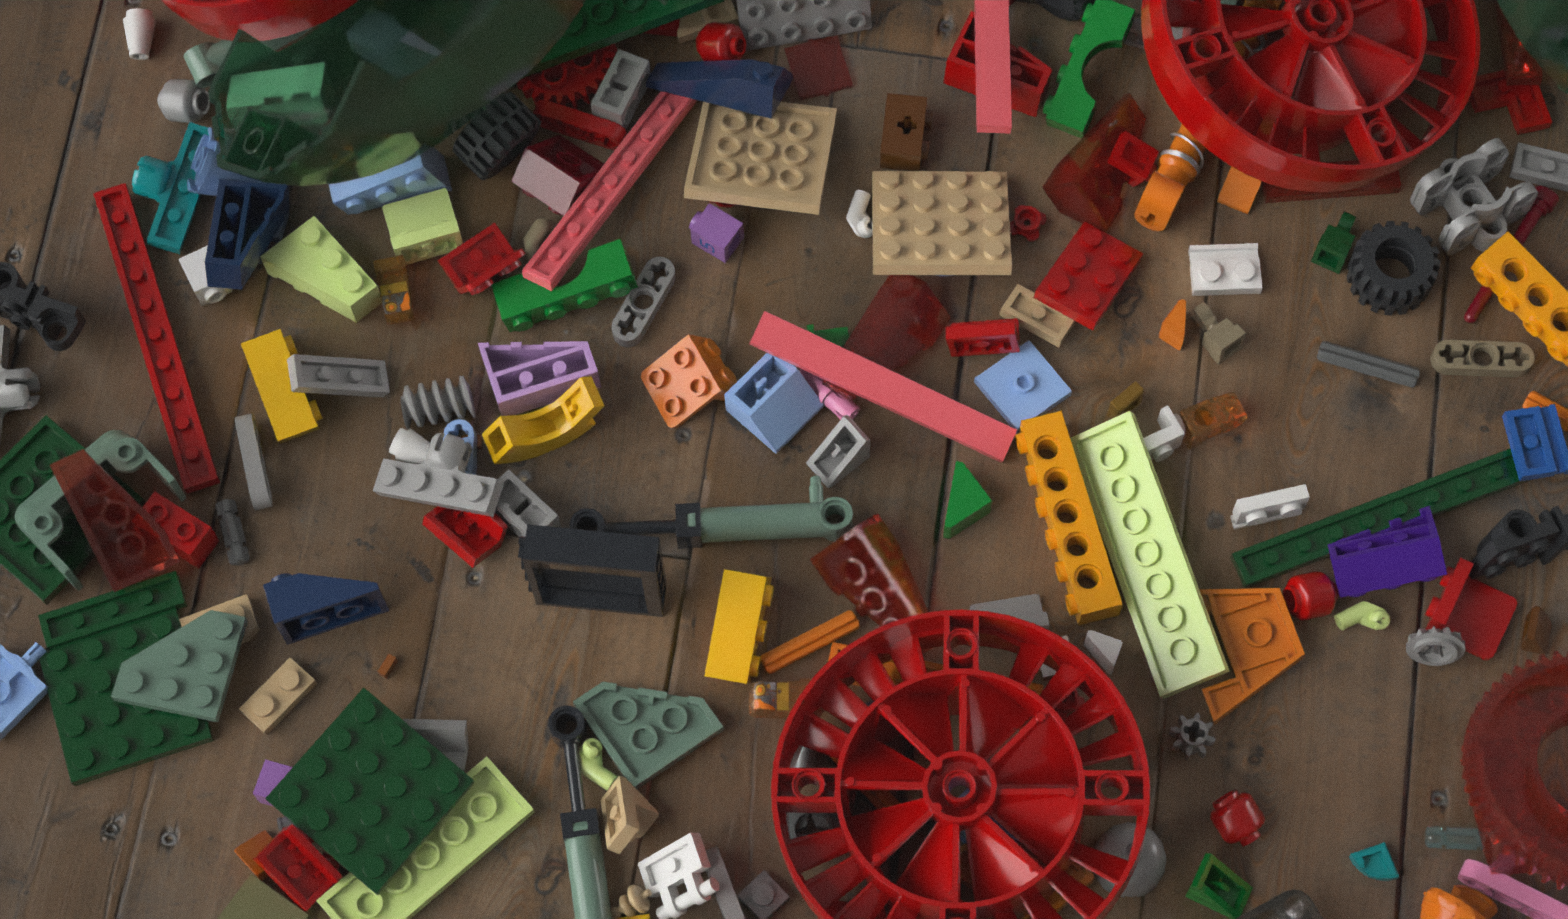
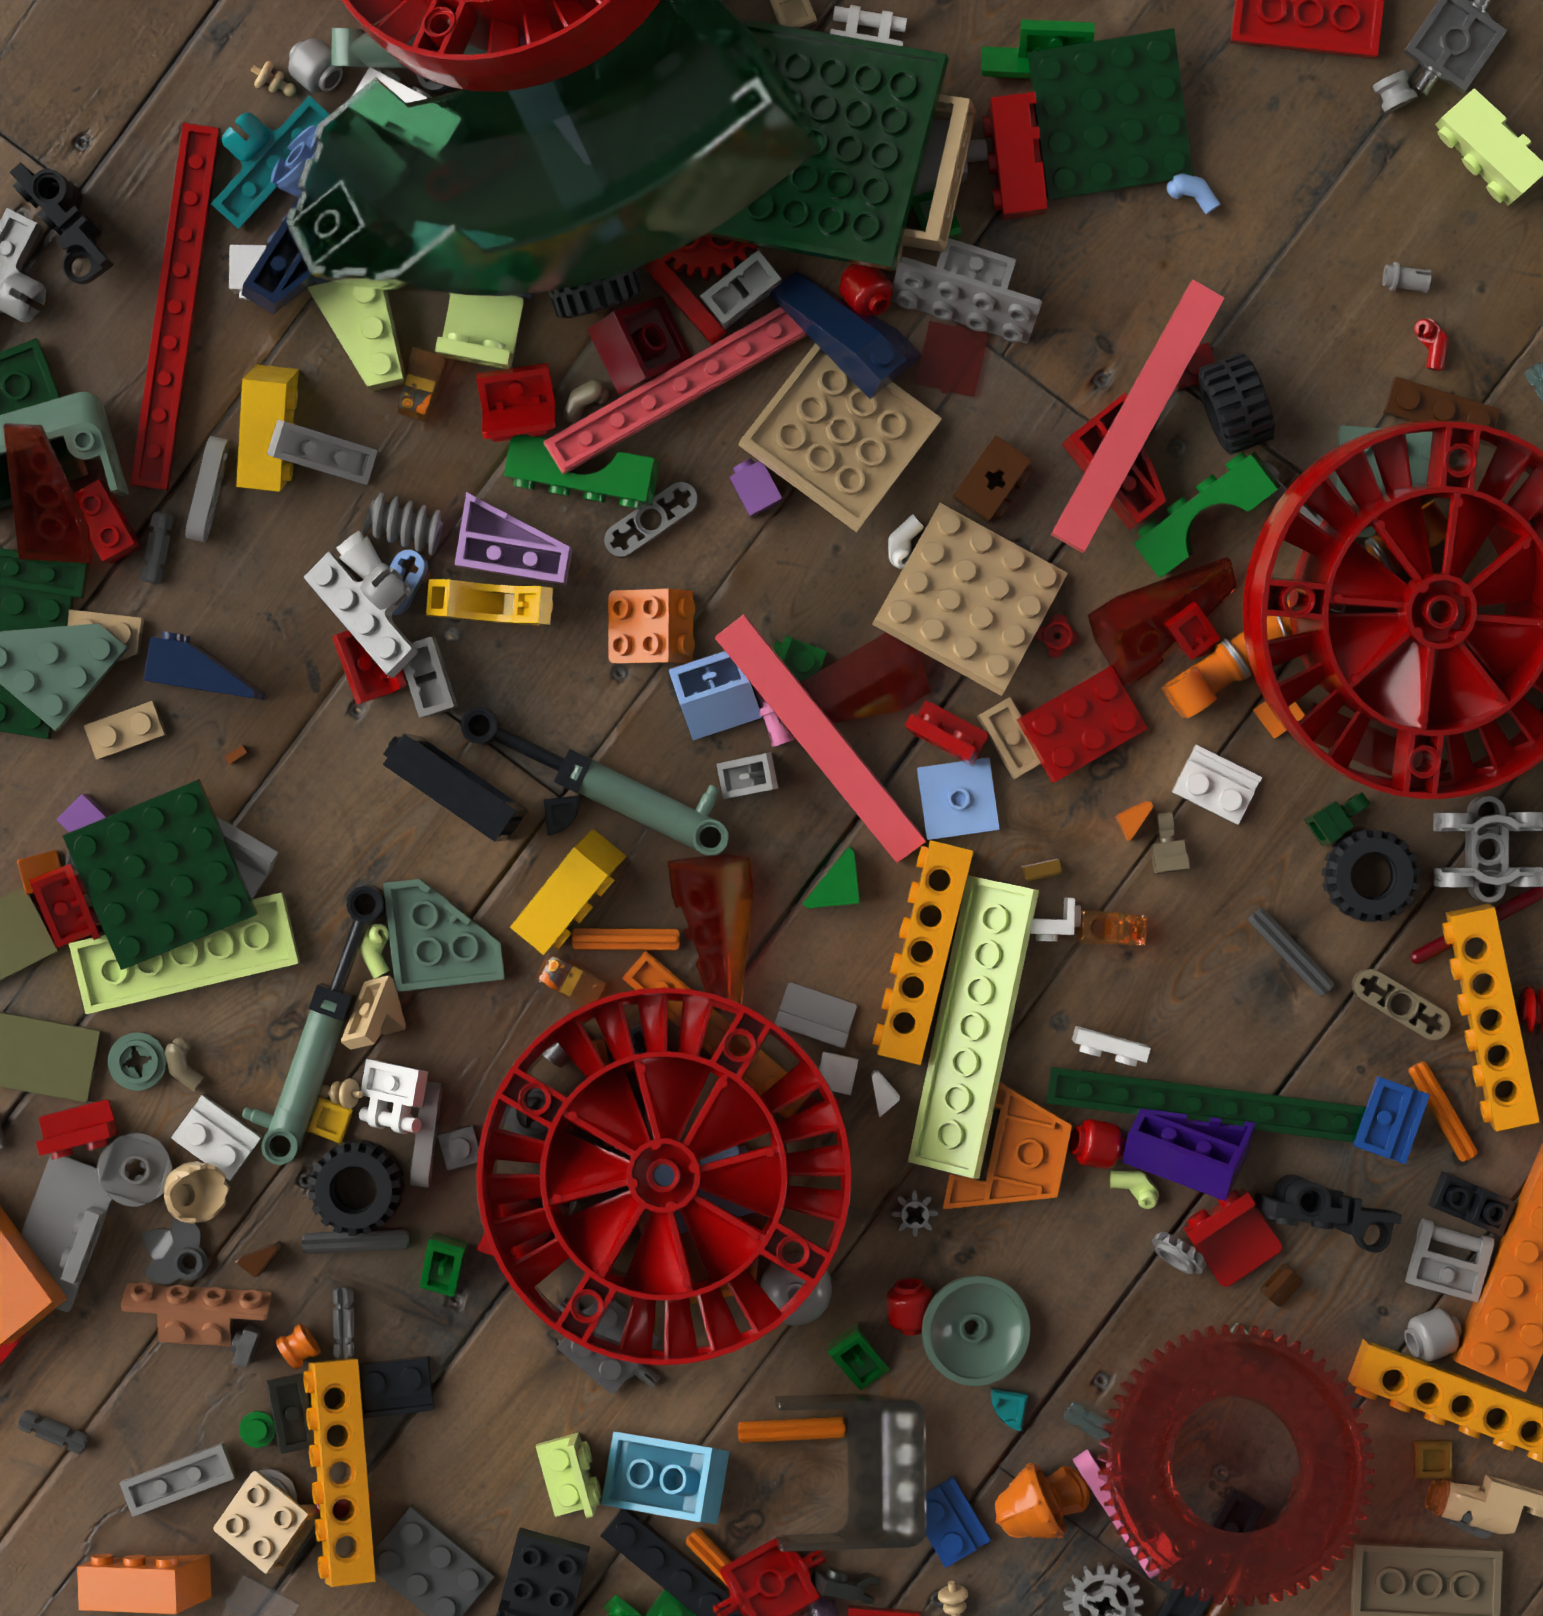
camera: 30 degrees right, 20 degrees up
(155, 130) = (275, 81): none -> tan hair
(695, 569) = (561, 813): none -> black tile
(1321, 791) = (992, 1346): none -> sand green dish

